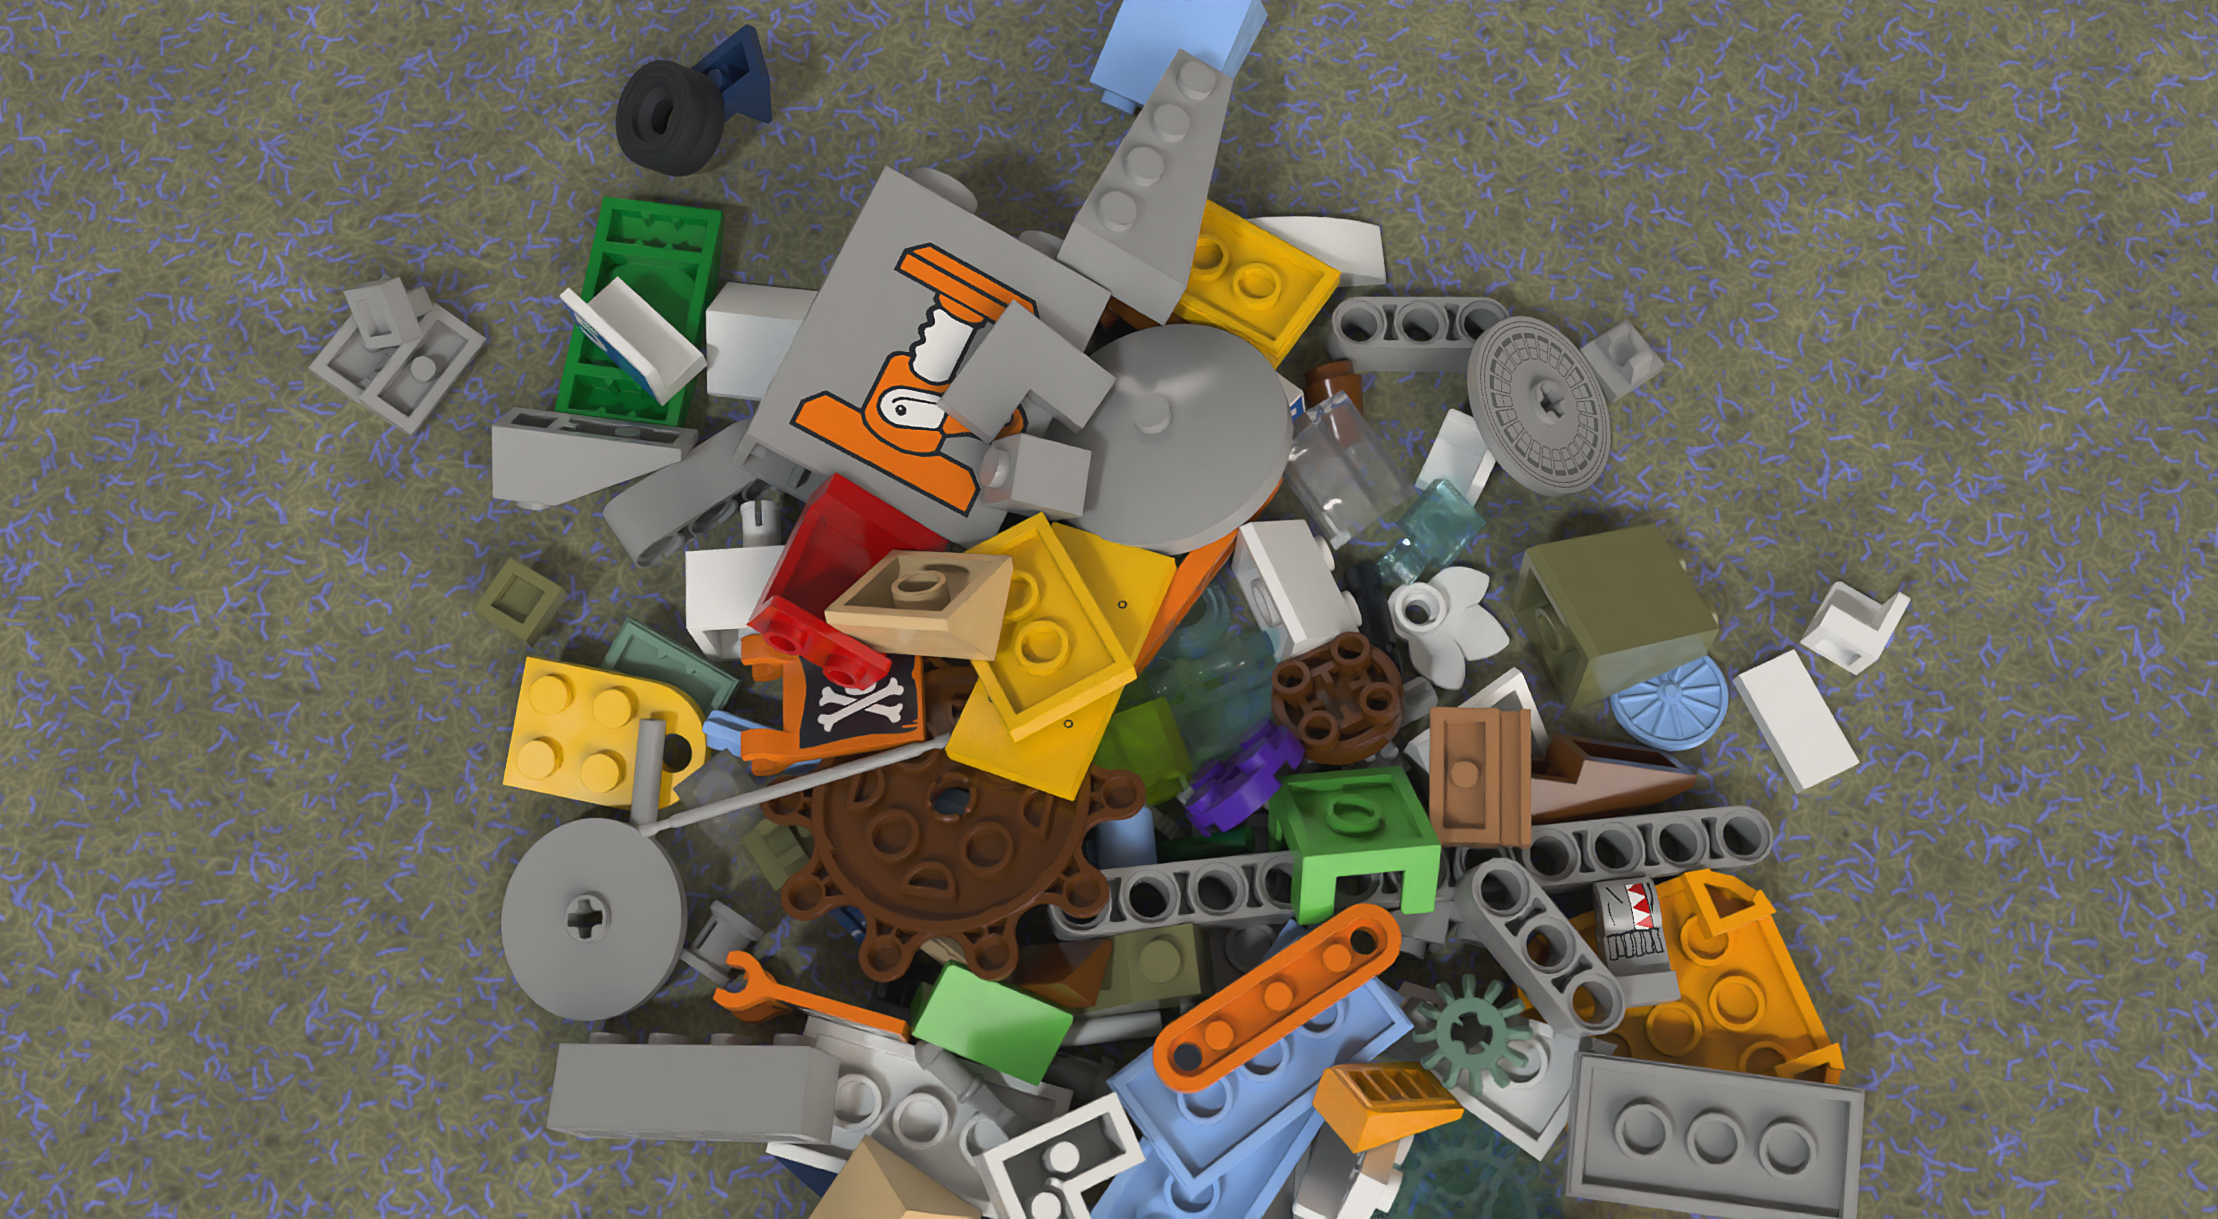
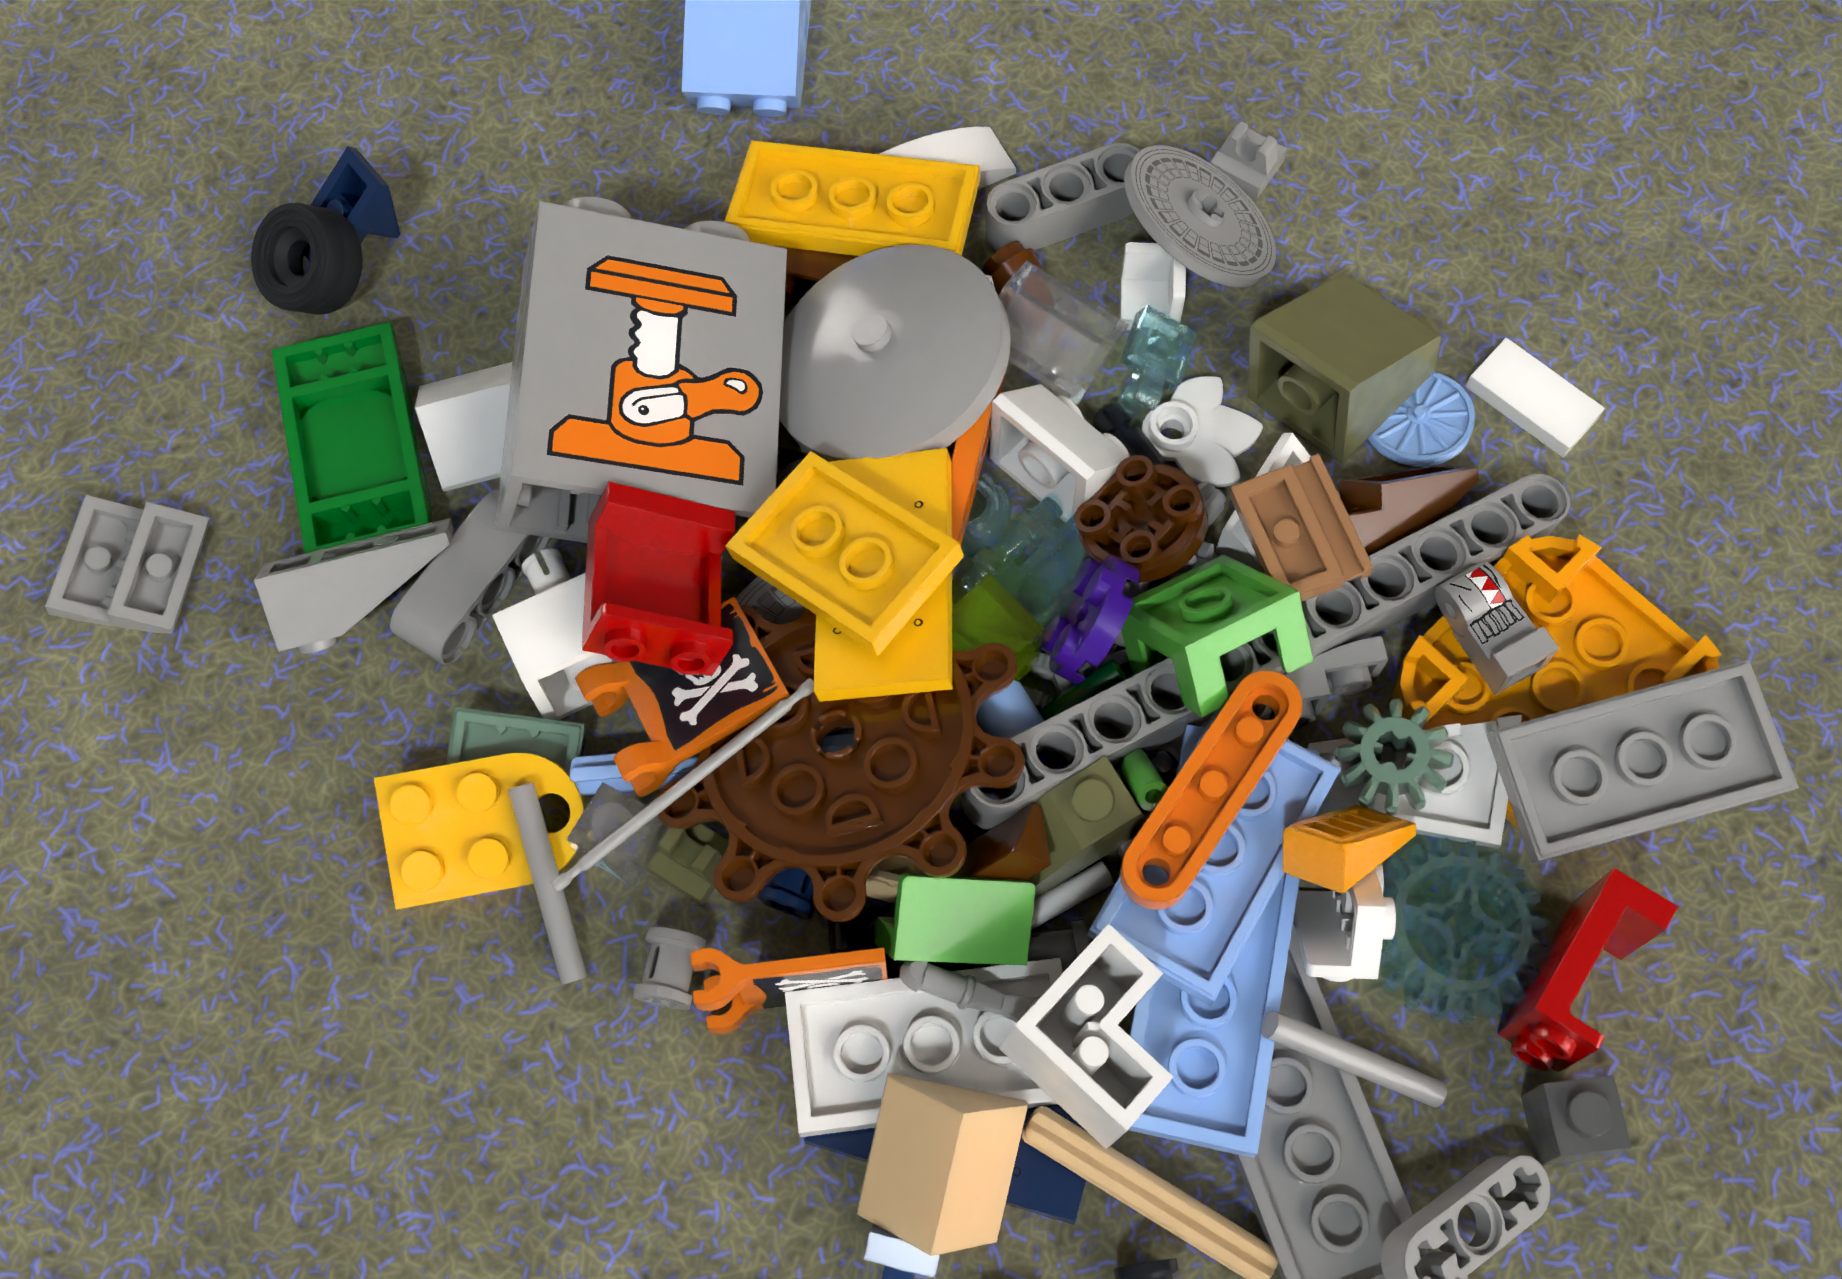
camera: 20 degrees left, 5 degrees down
(388, 312) = (105, 523): light grey tile -> none
(521, 602) = (345, 735): olive tile -> none
(603, 967) = (584, 1015): light grey piece -> none
(636, 339) = (357, 458): white panel -> none
(695, 1090) = (706, 1104): light grey brick -> none
(928, 604) = (746, 566): tan slope -> none
(1022, 360) = (738, 328): light grey tile -> none
(1035, 476) = (789, 421): light grey brick -> none
(1150, 201) = (790, 159): light grey wedge -> none
(1226, 951) = (1147, 776): none -> bright green arm
(1570, 957) = (1450, 653): light grey beam -> none
(1853, 627) = (1545, 303): white panel -> none

